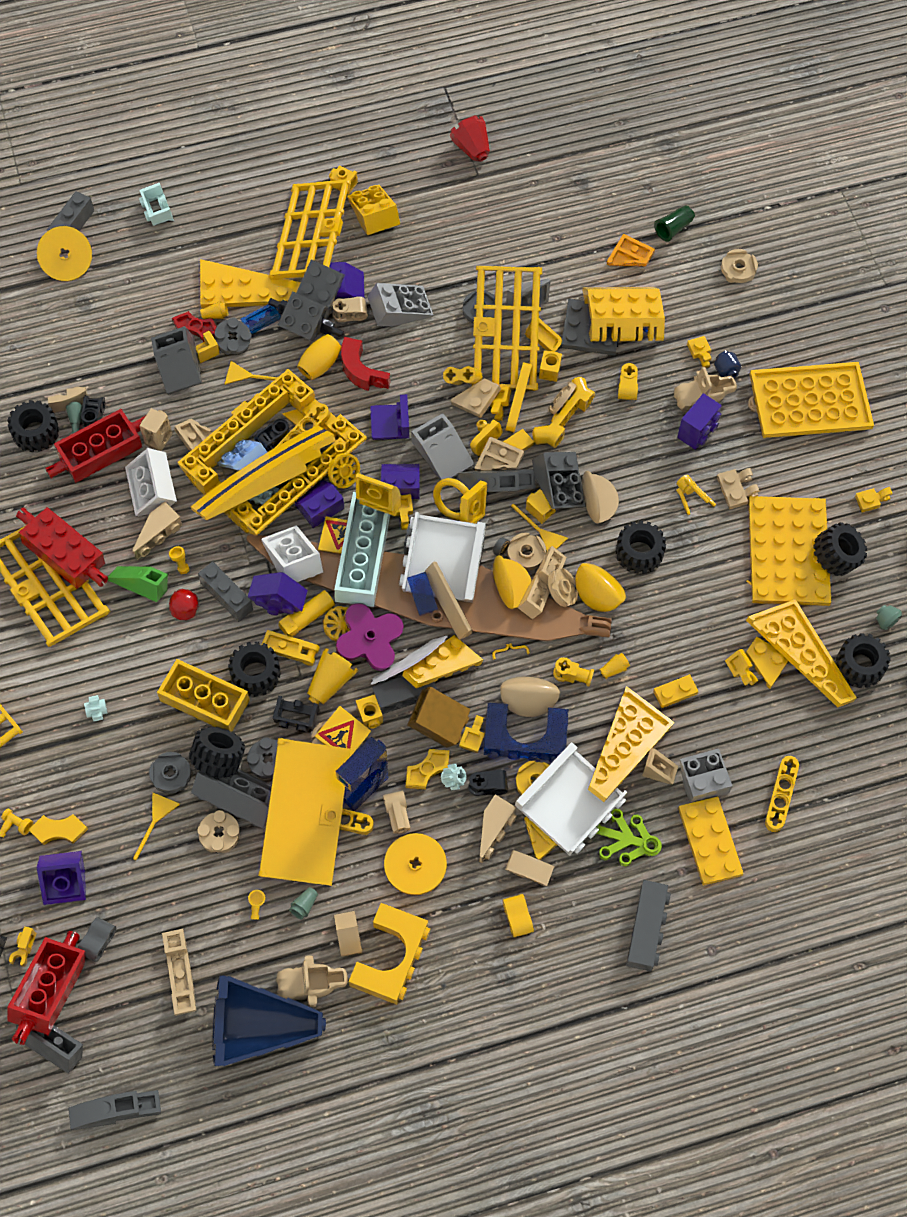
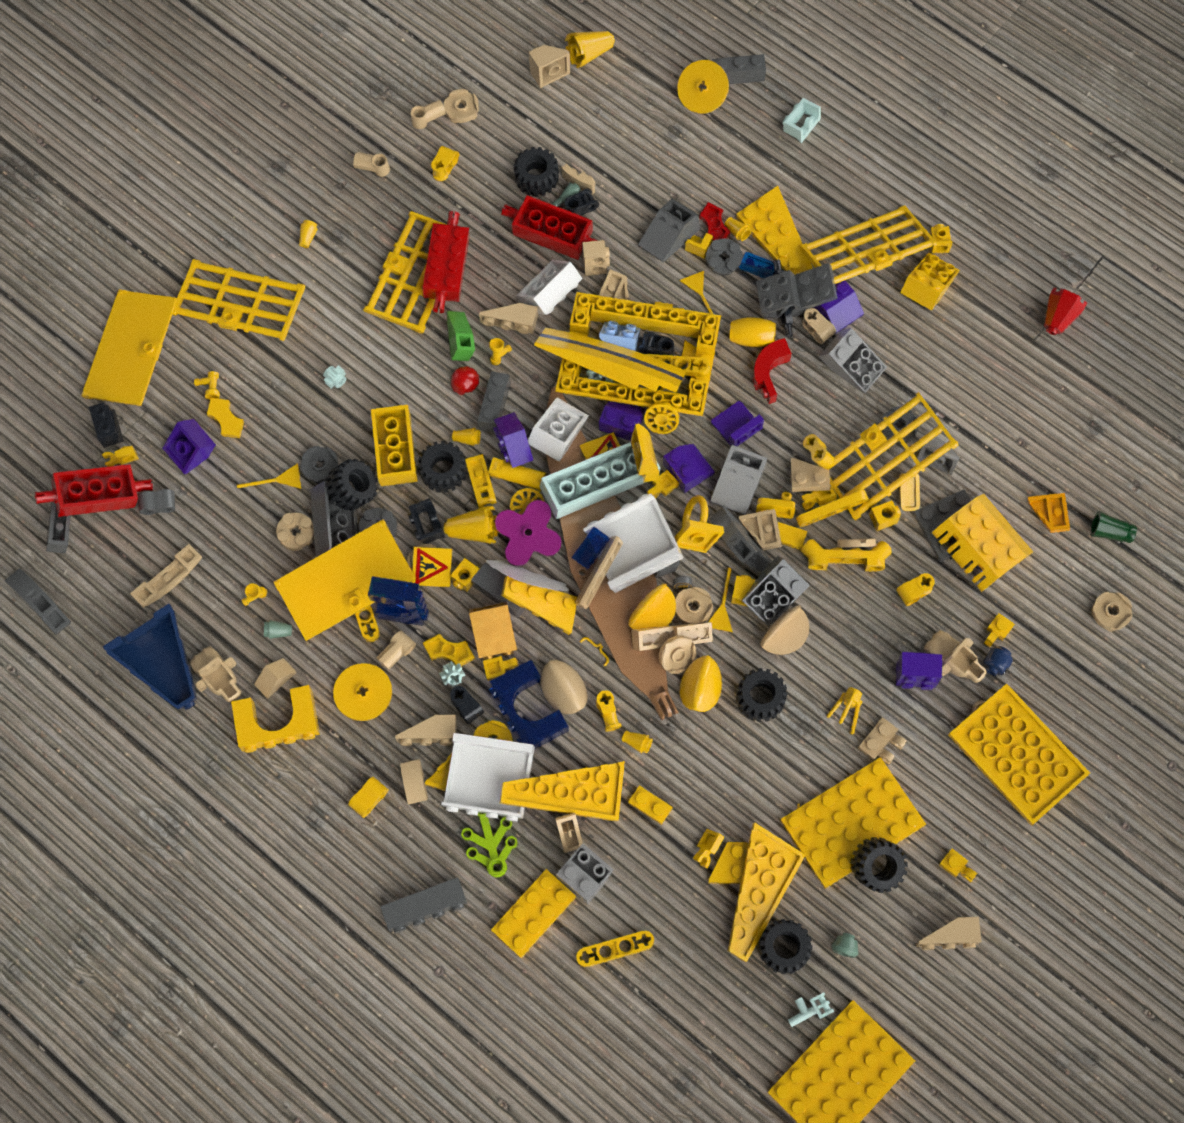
camera: 60 degrees right, 5 degrees up
(240, 632) = (467, 436): none -> yellow cone

